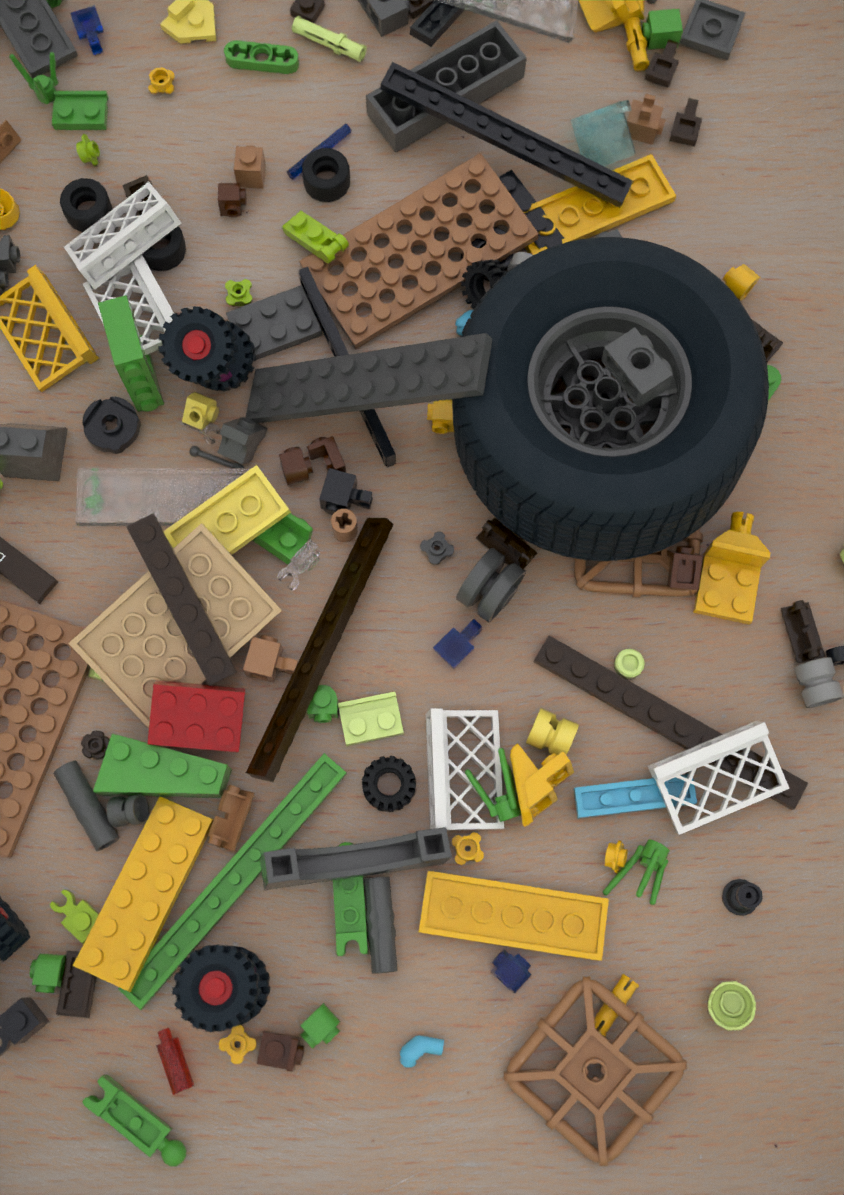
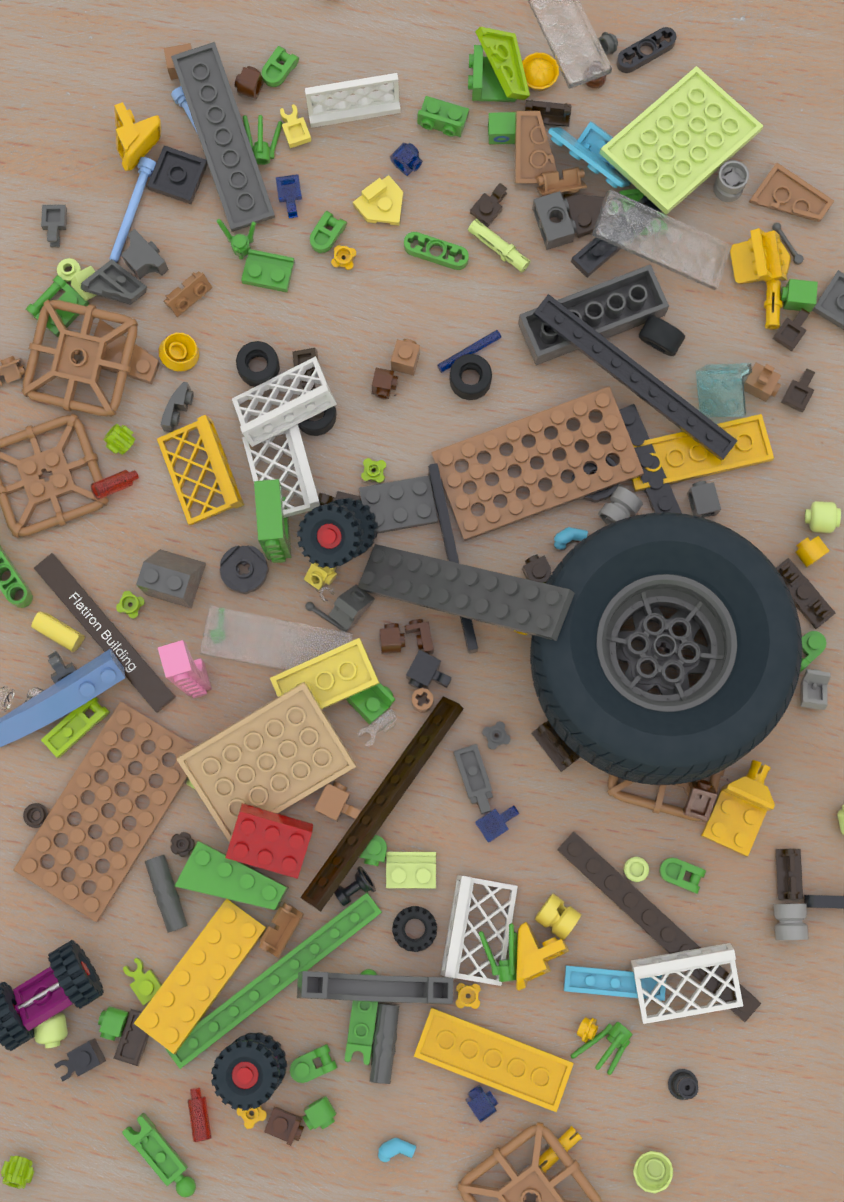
camera: 15 degrees right, 5 degrees up
(54, 530) = (183, 671): none -> bright pink arch
(88, 150) = (268, 312): lime plate -> none
(130, 810) = (197, 905): dark grey wheel -> none
(135, 66) = (322, 238): none -> bright green plate
(181, 599) = (275, 742): dark brown plate -> none
(291, 977) = (304, 1068): none -> bright green plate
(315, 236) = (449, 434): lime plate -> none
(315, 743) = (362, 882): none -> black piece
(422, 598) = (474, 776): none -> dark grey hinge
(475, 279) = (578, 512): black tyre -> none
(488, 583) = (534, 781): dark grey wheel -> none
(525, 93) = (661, 336): none -> black tyre
(639, 384) = (688, 662): dark grey brick -> none
(672, 656) = (673, 871): none -> bright green plate
(744, 244) = (823, 517): none -> yellowish green head
(780, 425) = (814, 689): none -> light grey bracket

